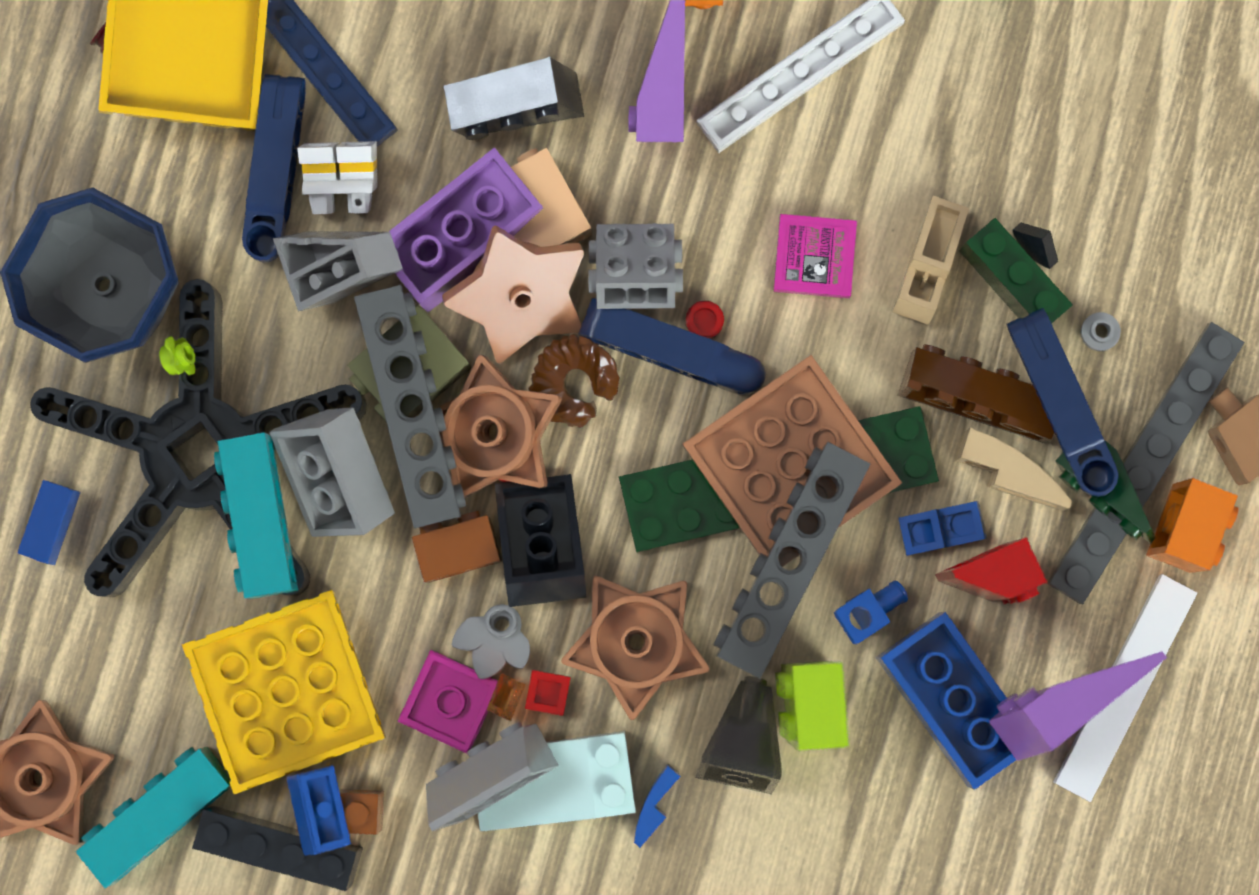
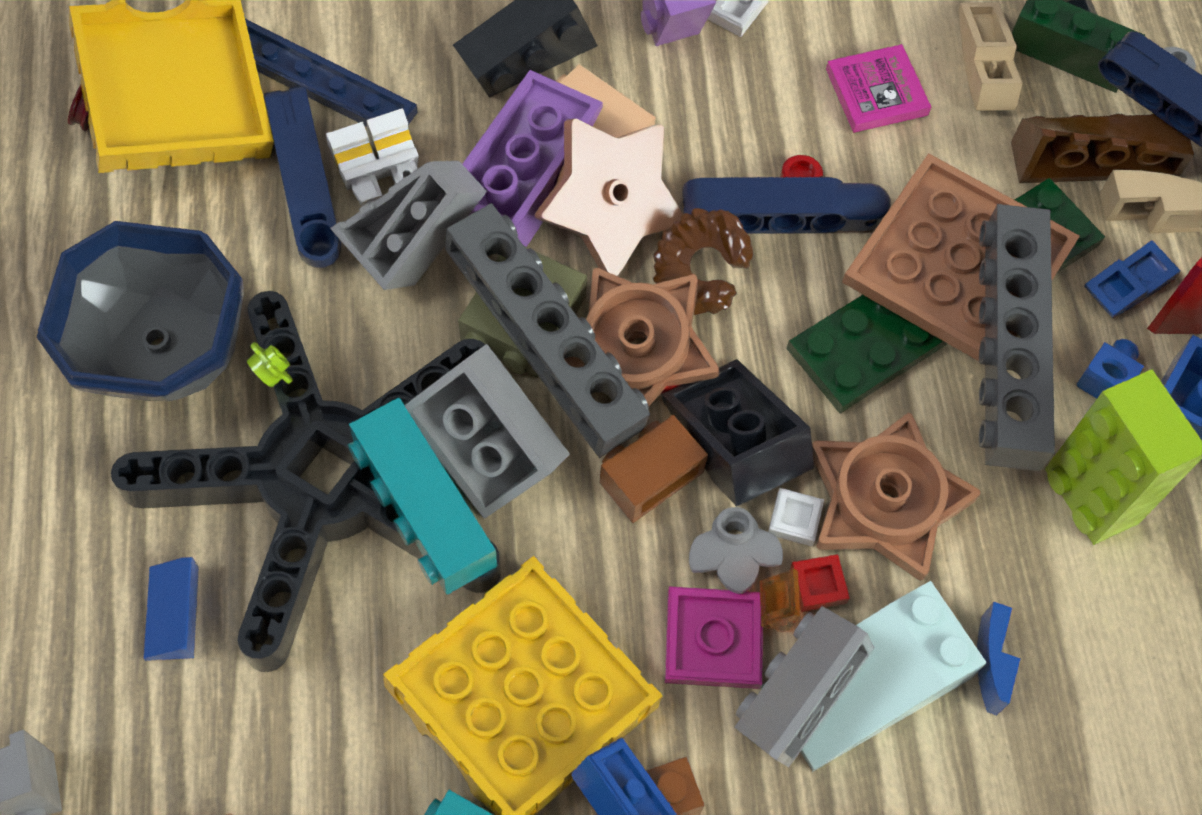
camera: 30 degrees left, 20 degrees down
(557, 629) = (796, 517): none -> white tile
(635, 266) = (716, 137): light grey brick -> none
(745, 741) = (1062, 553): clear smoke slope -> none

